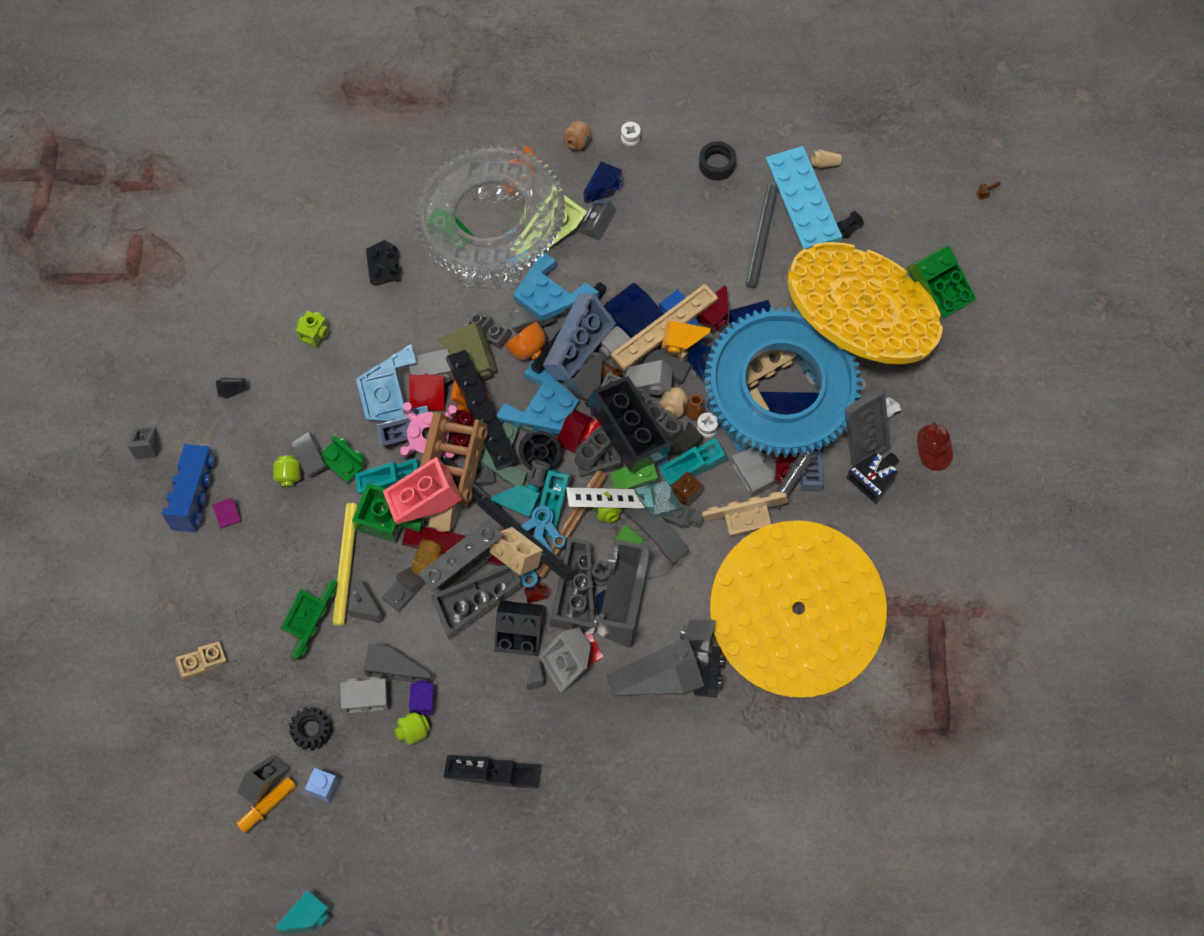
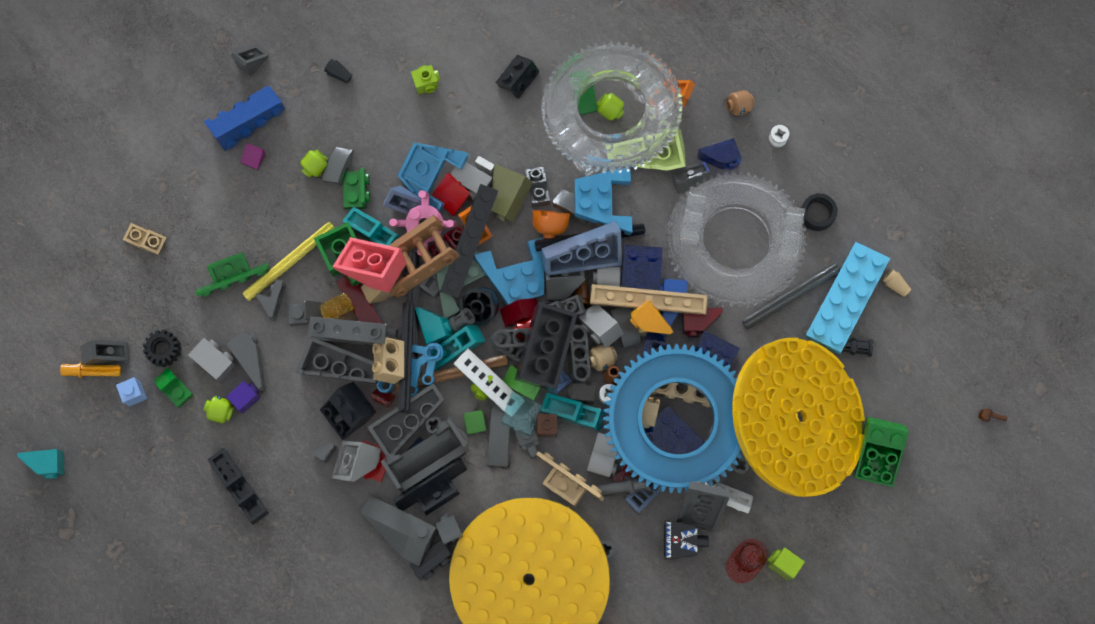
camera: 45 degrees right, 10 degrees up
(352, 750) = (173, 387): none -> green slope
(430, 346) = (484, 165): none -> white tile
(481, 222) = (610, 106): none -> lime head
(653, 620) = (434, 490): none -> black bracket
(707, 190) = (728, 284): none -> clear piece
(965, 417) = (785, 563): none -> lime brick

